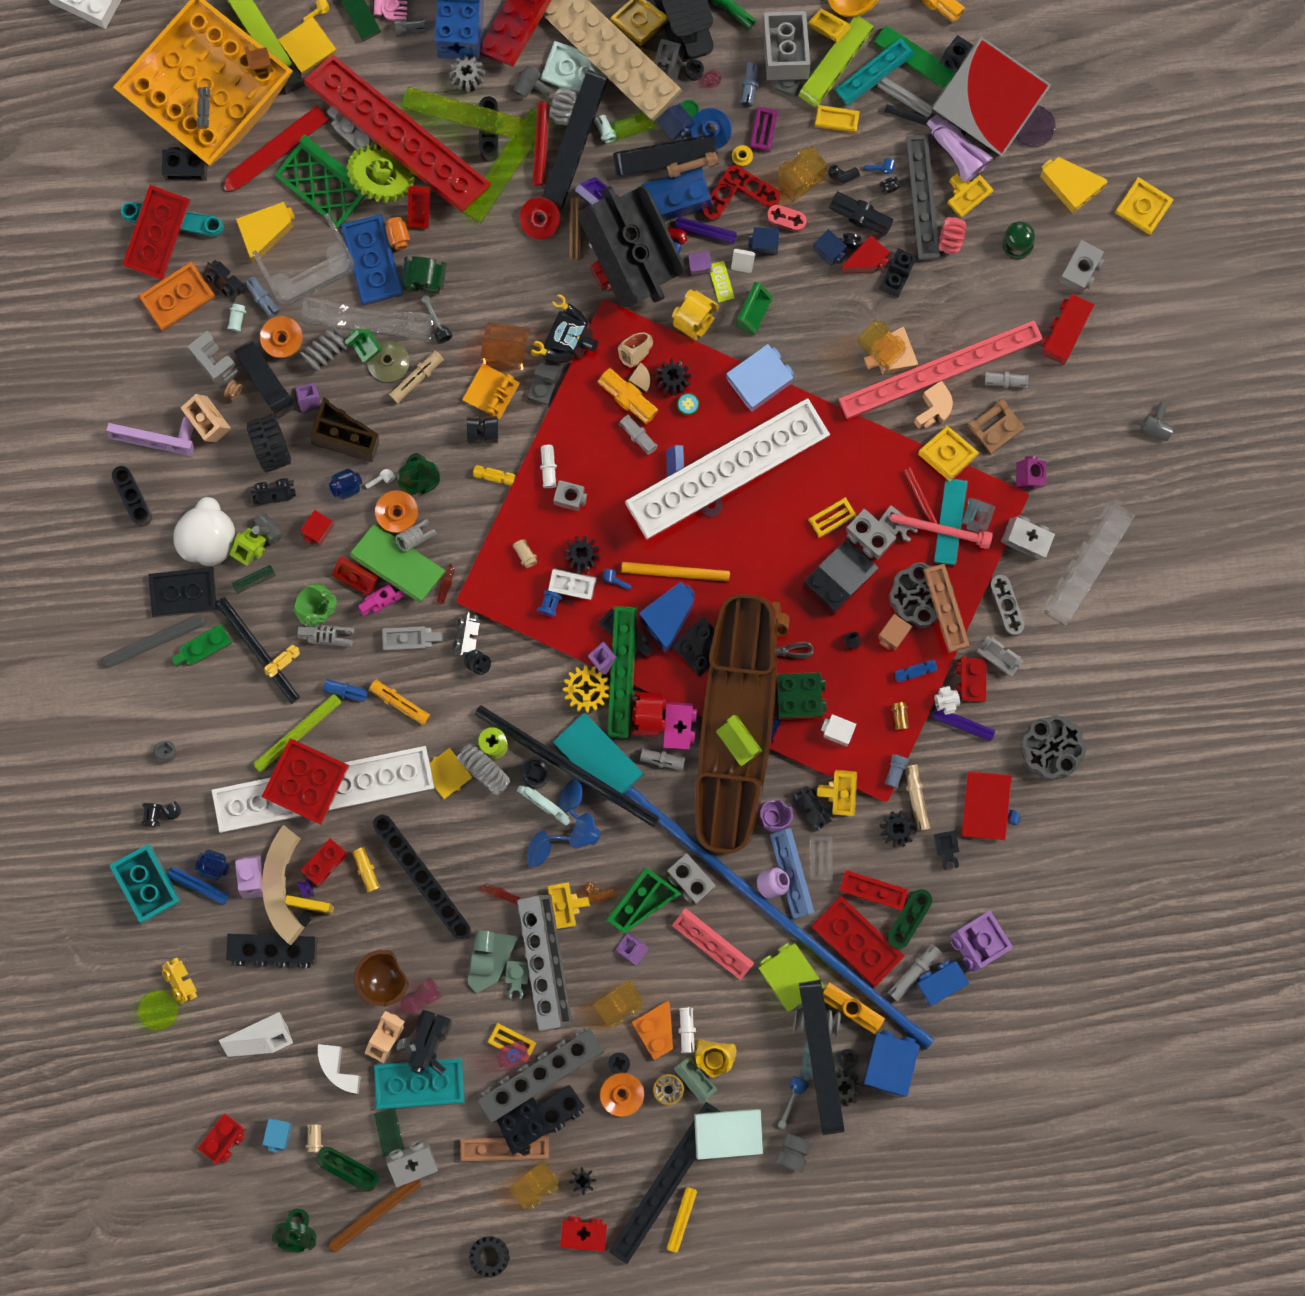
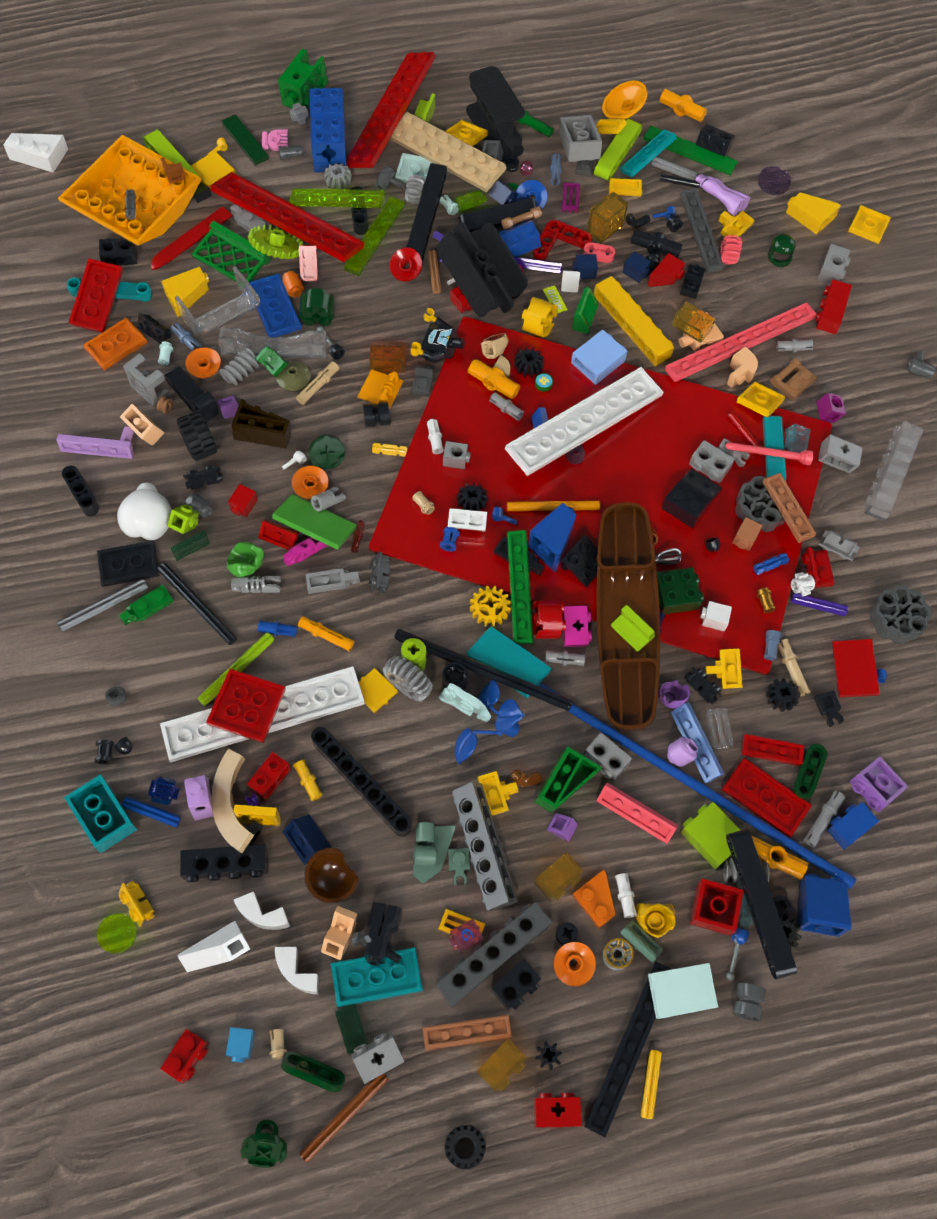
camera: 10 degrees left, 15 degrees down
(281, 661) = (218, 608): yellow axle -> none
(297, 1003) = (251, 910): none -> white brick
(345, 484) = (264, 465): clear blue head -> none
(359, 932) = (305, 837): none -> dark blue panel
(415, 1002) = (371, 893): clear pink leg -> none
(477, 662) = (396, 595): black wheel -> none
(500, 893) = (434, 789): clear red piece -> none
(523, 1127) = (484, 1006): black hinge -> none
(541, 141) = (400, 216): red axle -> none
(602, 658) = (501, 576): medium lavender slope -> none
(700, 263) = (537, 287): medium lavender slope -> none
(742, 161) = (557, 214): yellow plate -> none
(778, 1054) = (716, 907): none -> red brick
(812, 325) = (633, 321): none -> yellow brick
(816, 527) = (666, 462): yellow tile -> none
(991, 96) = (742, 154): red tile -> none
(997, 592) = (834, 517): light grey beam -> none

